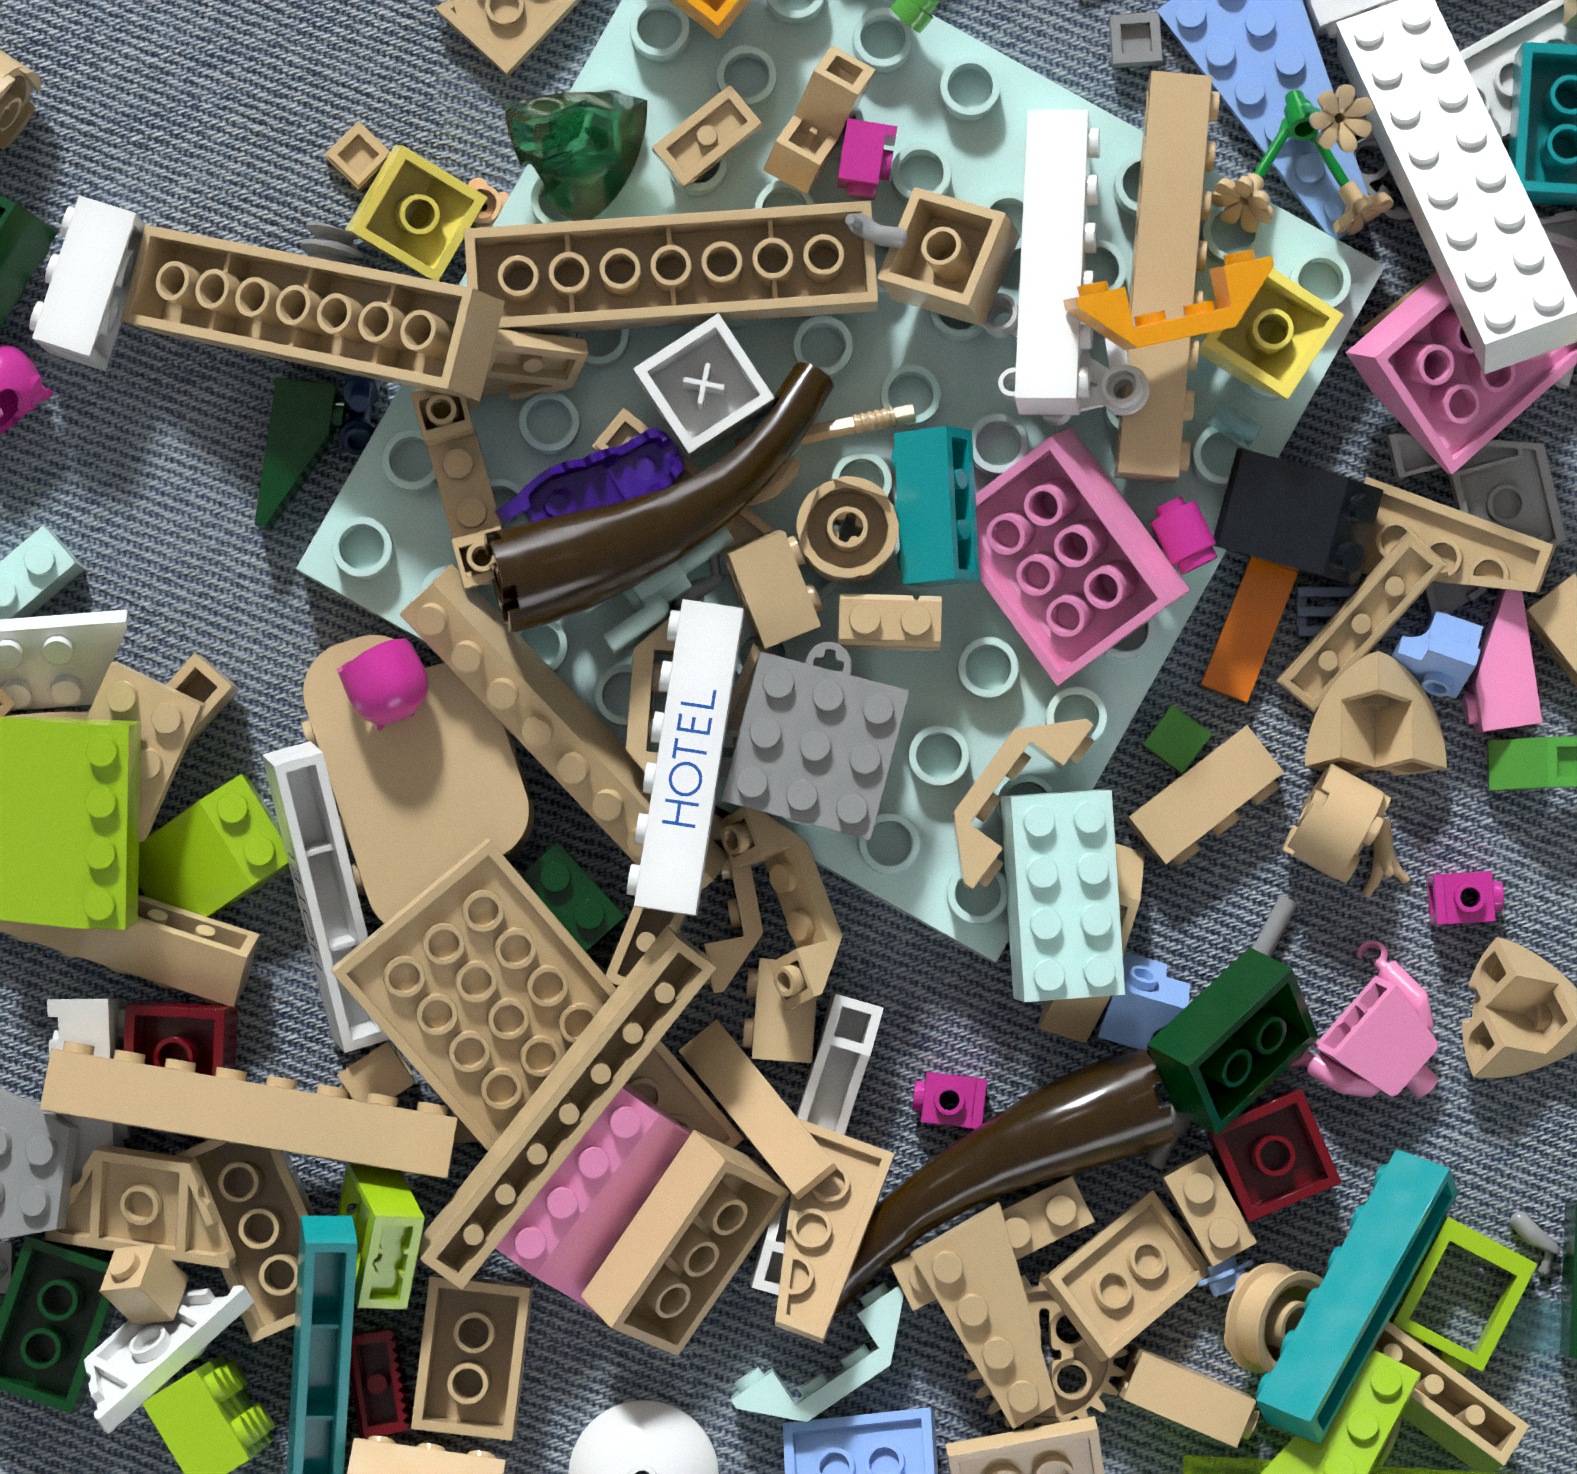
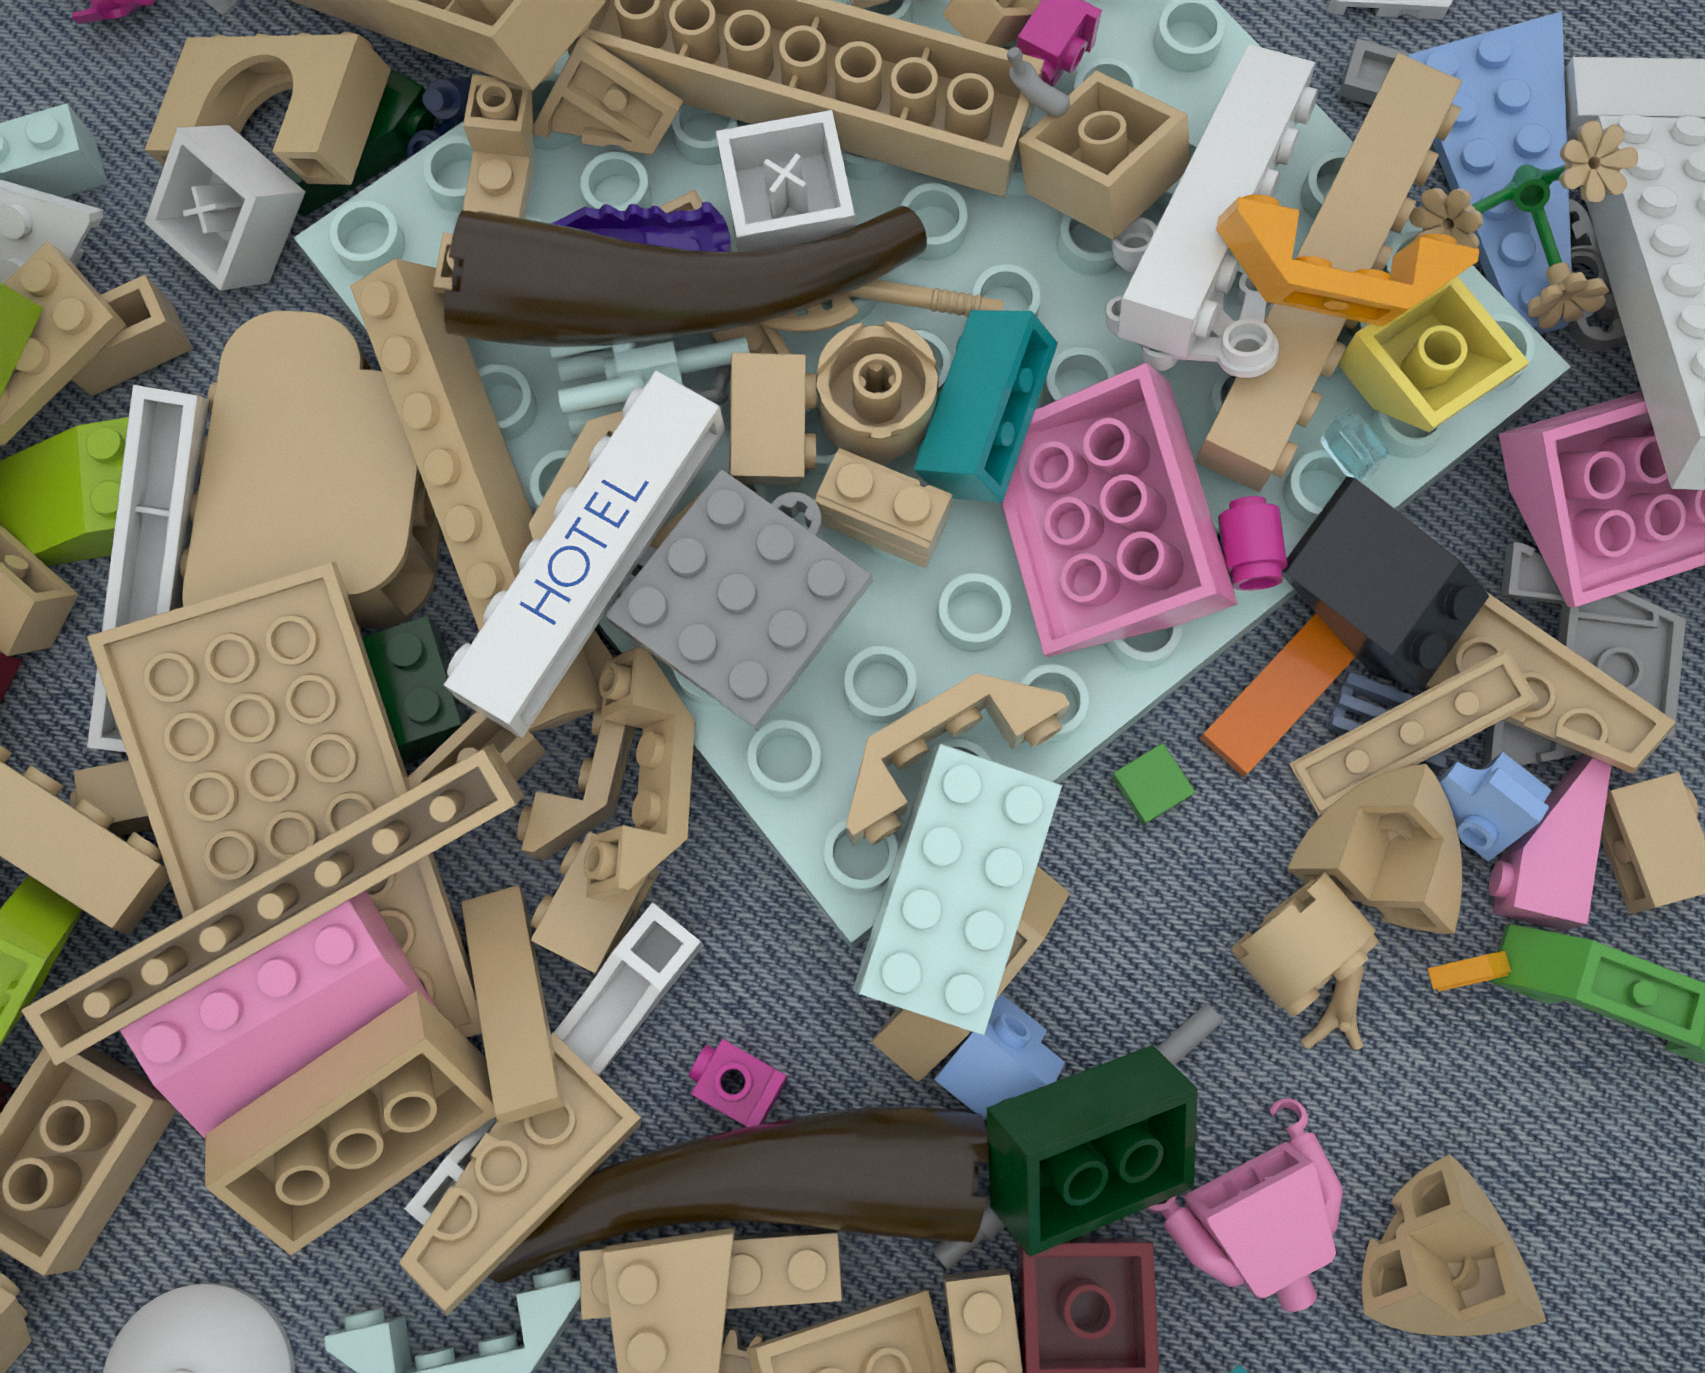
camera: 25 degrees right, 10 degrees down
(154, 446) = (331, 107): none -> tan arch
(222, 563) = (223, 206): none -> white brick
(385, 682) = (303, 351): dark pink helmet -> none
(1206, 798) = (1163, 858): tan brick -> none
(1445, 901) = (1399, 1096): dark pink brick -> none
(1468, 792) = (1469, 971): none -> light orange tile

